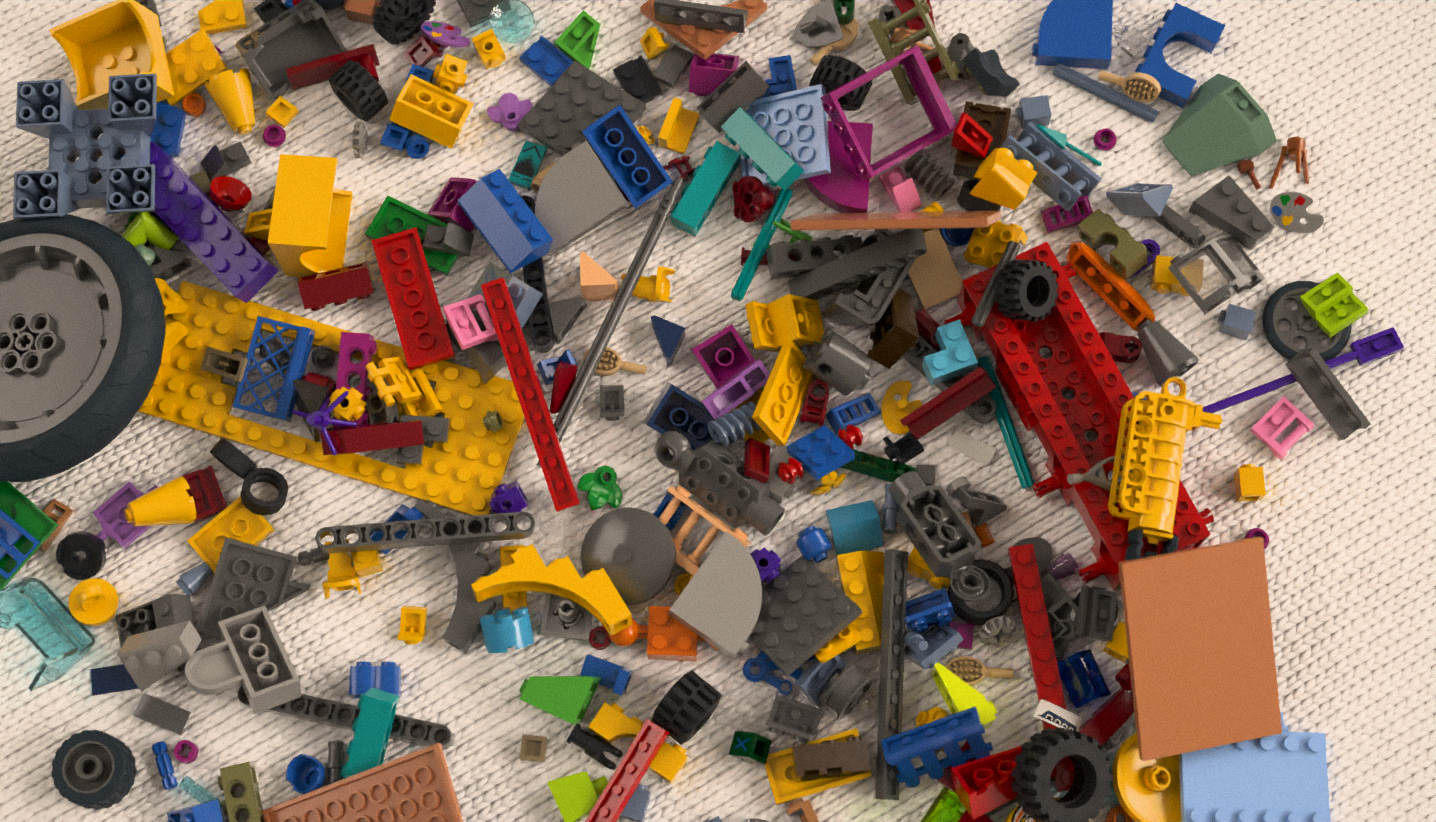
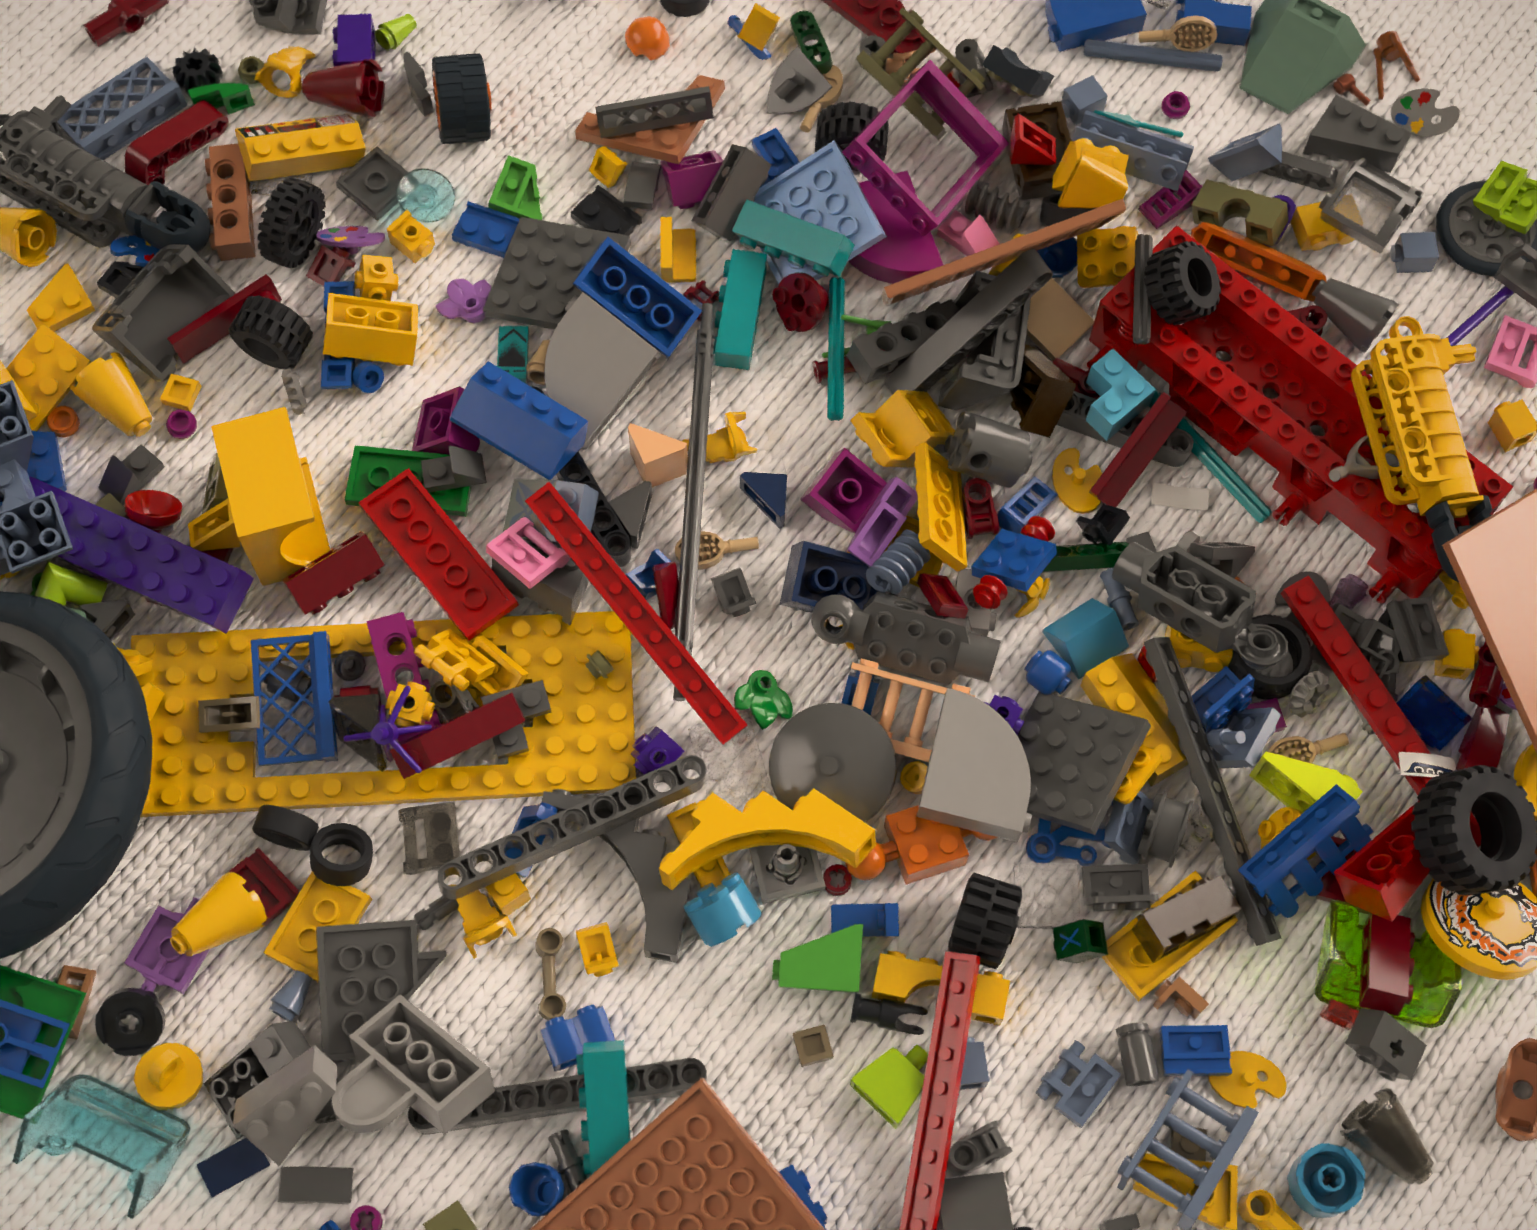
camera: 25 degrees left, 5 degrees down
(337, 503) = (440, 836): none -> clear smoke plate
(381, 608) = (547, 946): none -> dark tan bar

